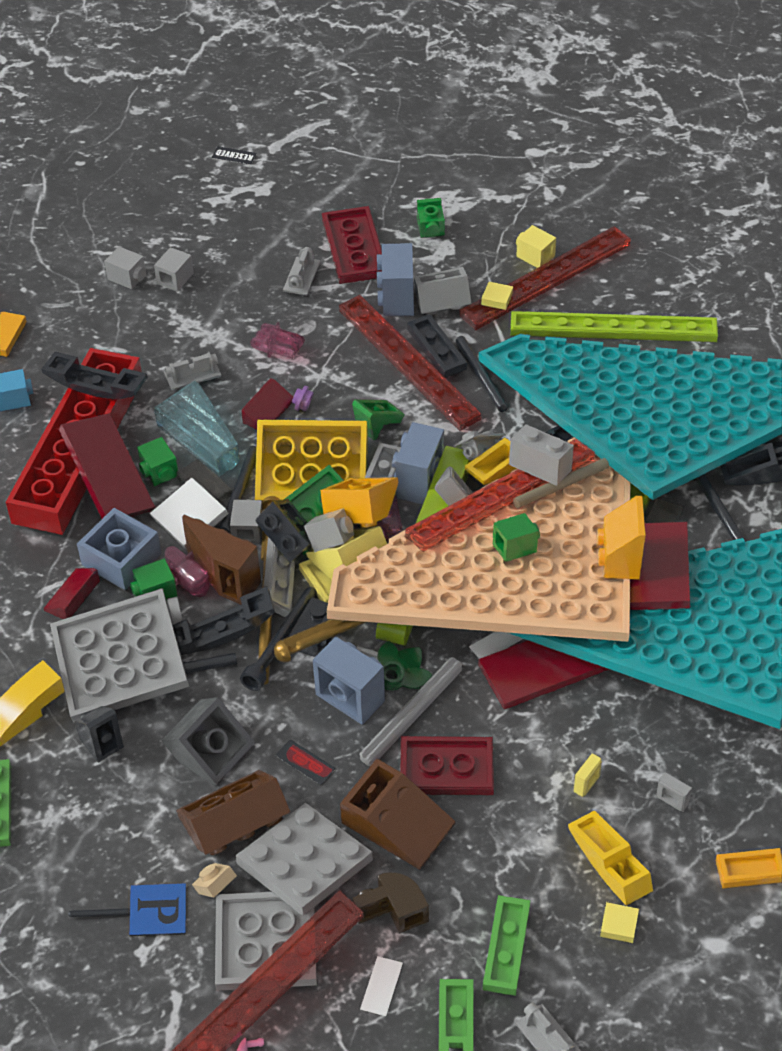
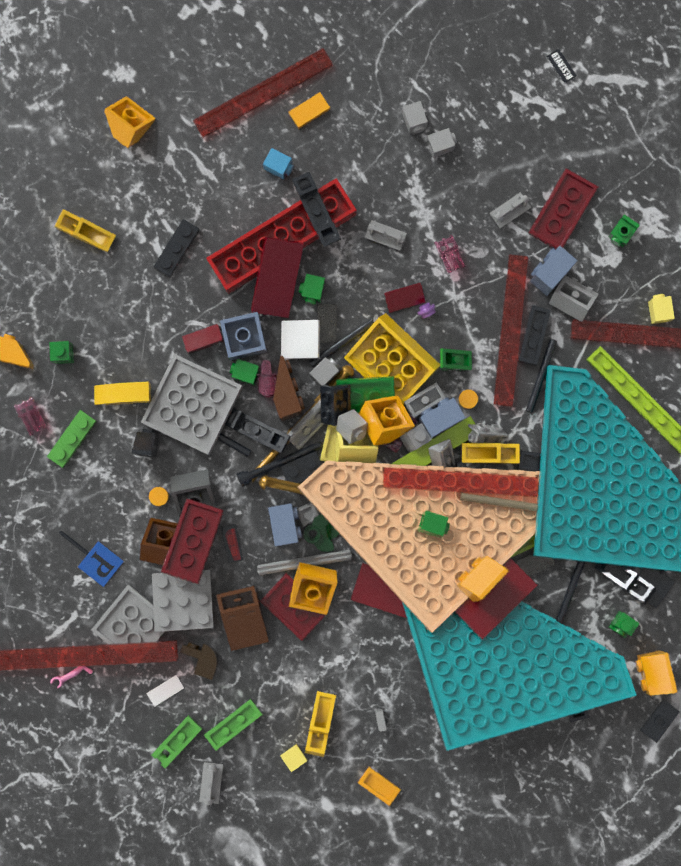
camera: 45 degrees right, 35 degrees up
(165, 779) = (158, 496): none -> light orange tile
(174, 610) = (240, 400): light grey tile -> none
(198, 428) = (354, 280): clear light blue slope -> none
(213, 879) = (134, 575): tan plate -> none
(255, 768) = (192, 541): none -> dark red tile
(409, 498) = (415, 438): none -> light grey brick
(449, 718) = (313, 588): none -> light orange slope
(497, 295) = (601, 330): light yellow tile -> none
(541, 454) = (498, 482): light grey brick -> none
(587, 775) = (350, 675): light yellow tile -> none

